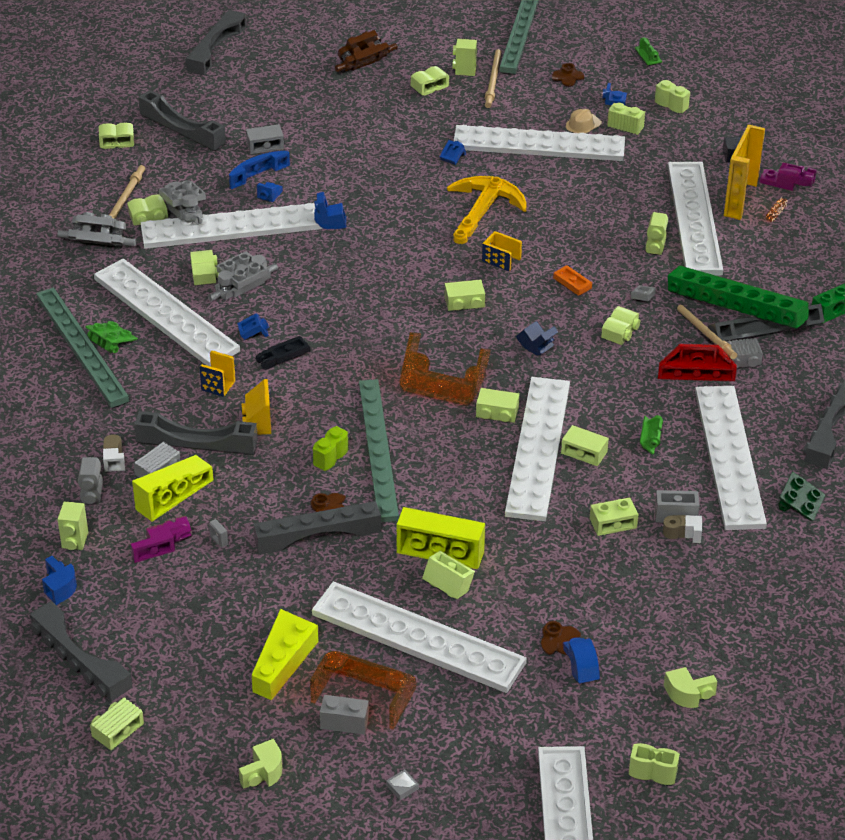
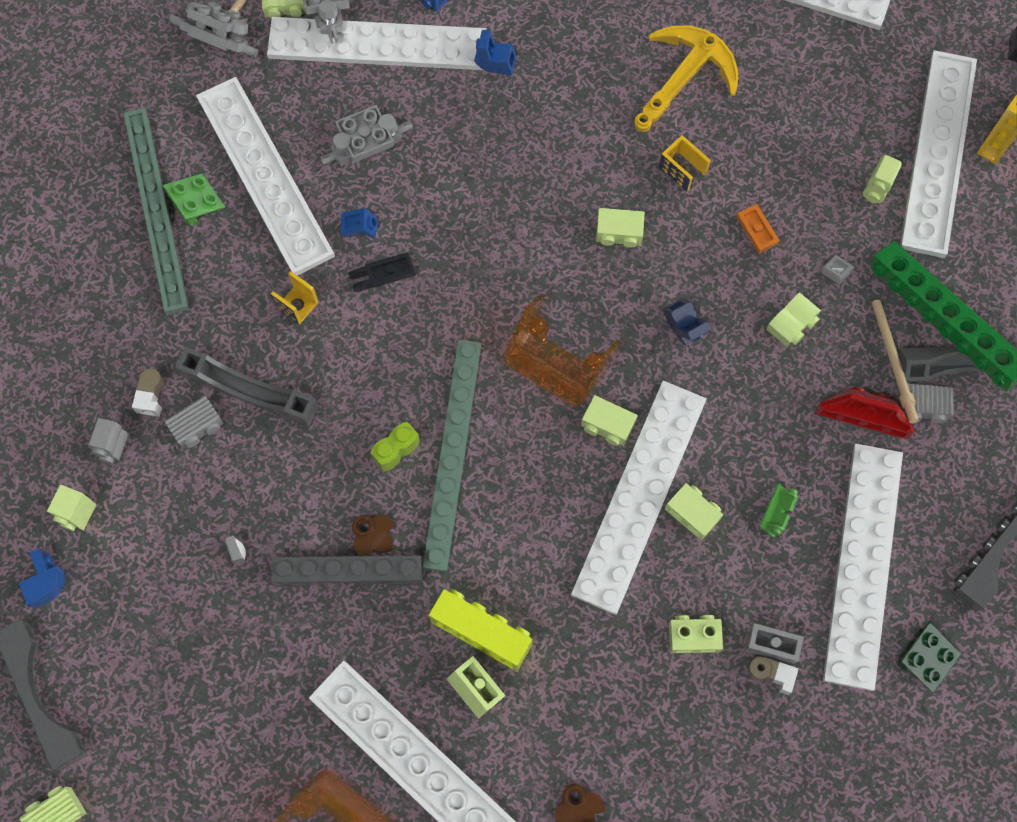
camera: 15 degrees right, 30 degrees up
(161, 539) = (170, 542): magenta plate -> none
(170, 485) = (199, 465): neon yellow wedge -> none
(203, 267) = (325, 110): yellowish green brick -> none
(258, 407) = (326, 368): yellow slope -> none
(283, 652) = (261, 754): neon yellow wedge -> none

